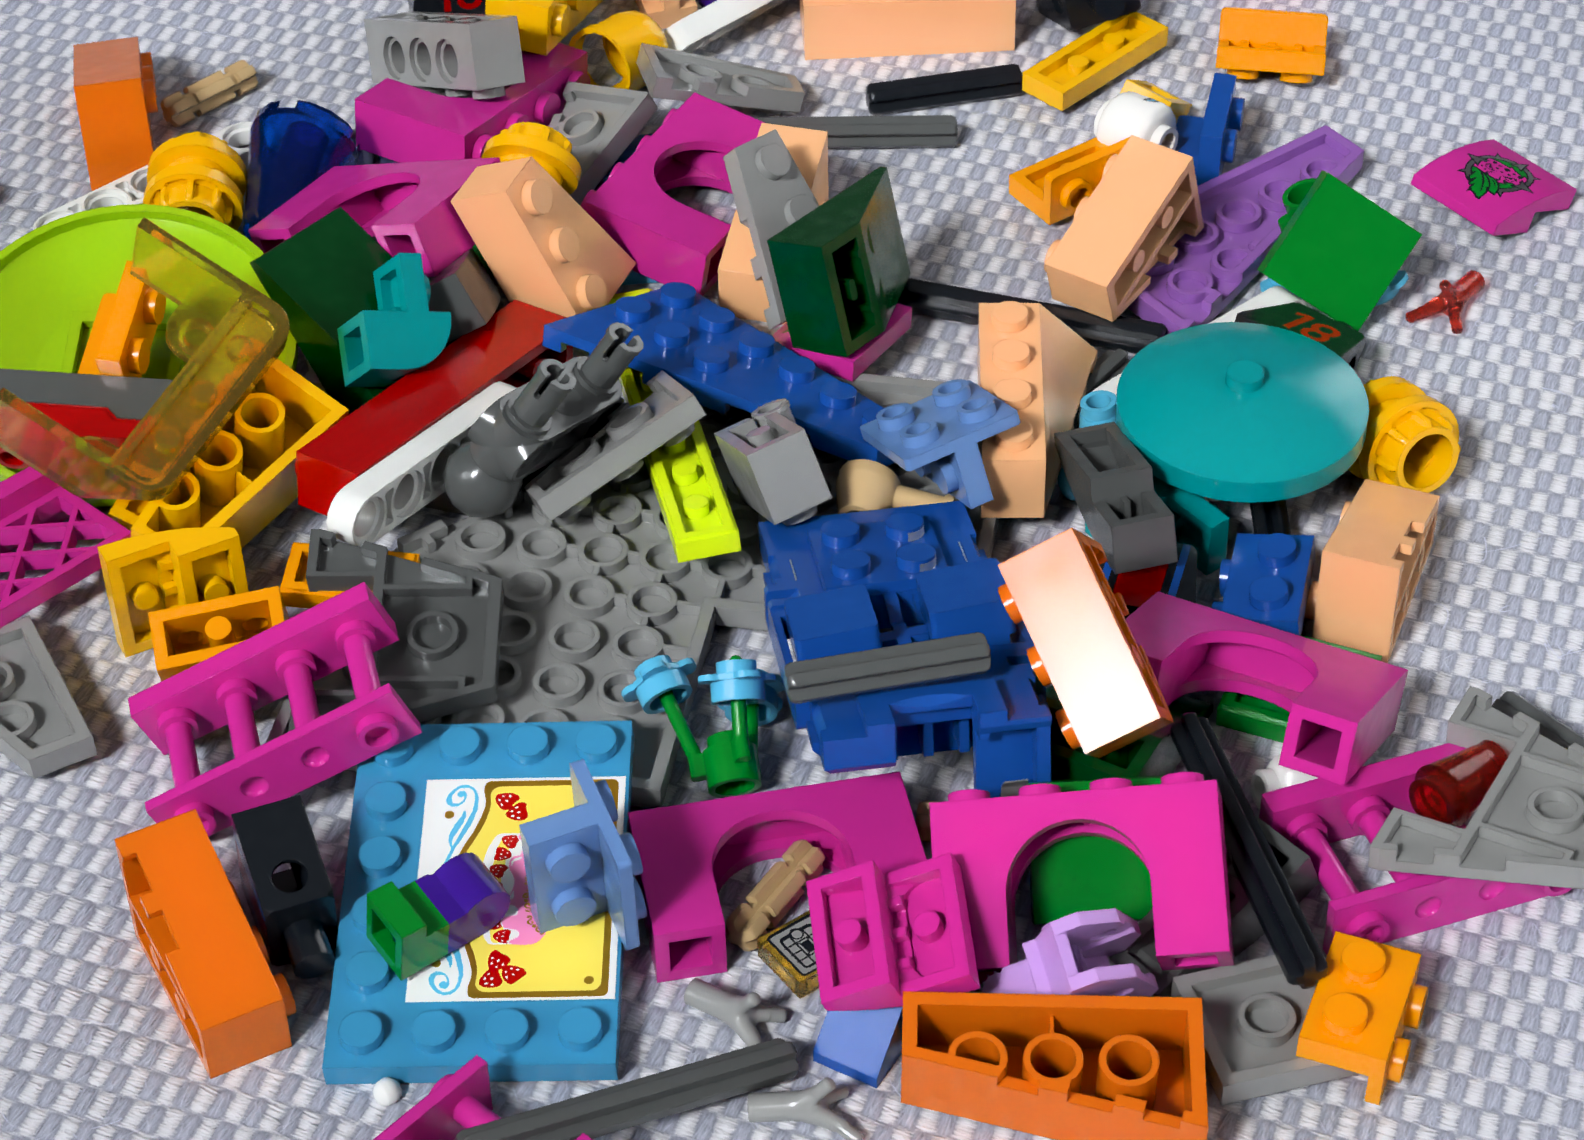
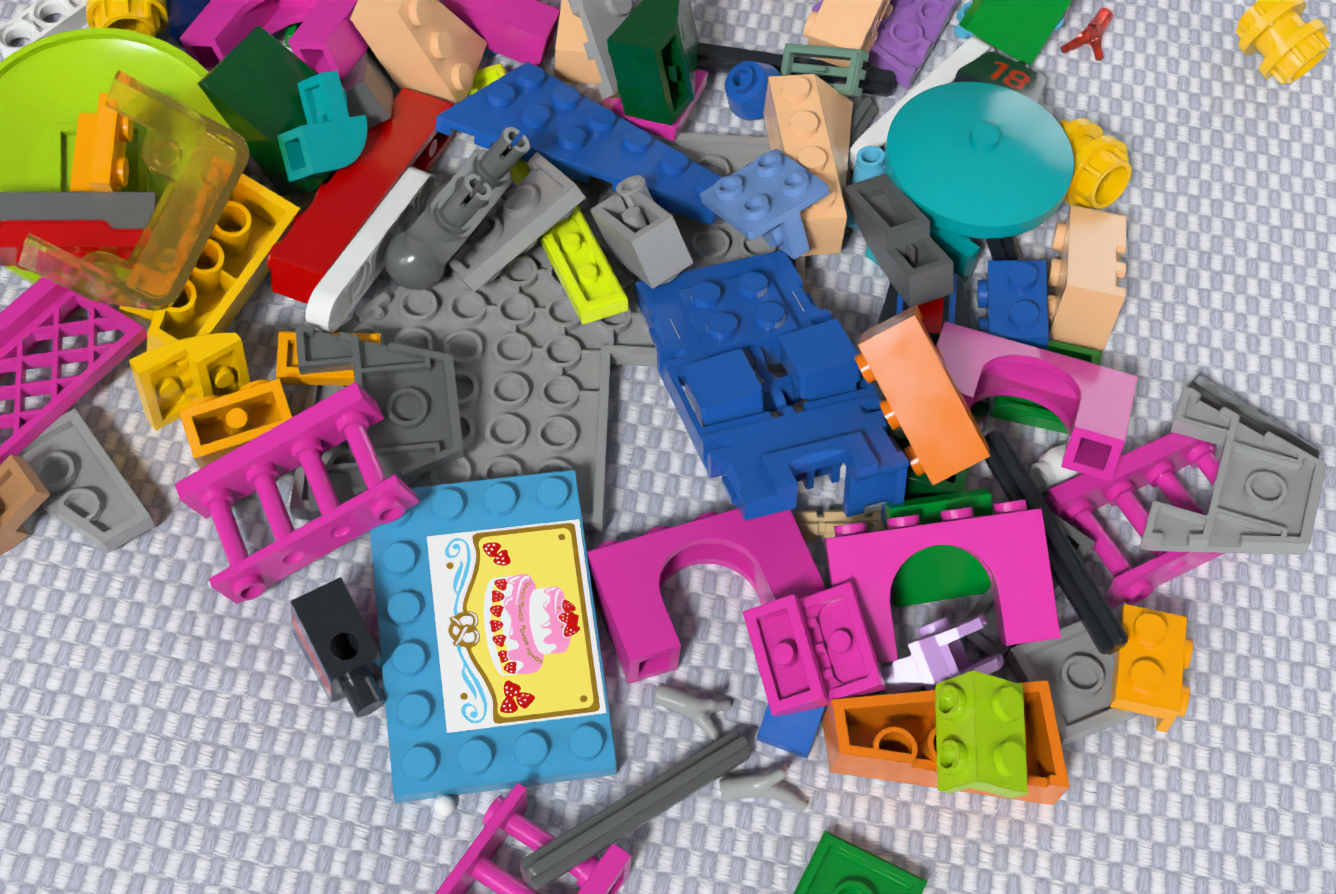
camera: 15 degrees left, 15 degrees up
(203, 945) = (283, 704): orange wedge -> none
(434, 913) = (460, 662): leg -> none
(582, 864) = (575, 612): medium blue bracket -> none
(739, 689) = (651, 434): plant -> none
(774, 895) = (704, 601): tan axle -> none
(792, 954) = (730, 650): tile -> none
(873, 486) = (715, 244): tan bar -> none
(887, 667) = (783, 435): dark grey axle -> none
(957, 331) = (747, 88): none -> blue cone
(1092, 313) = (853, 73): none -> sand green tile
(1093, 1043) = (980, 735): none -> lime bracket
(1456, 784) = (1187, 471): clear red cone -> none

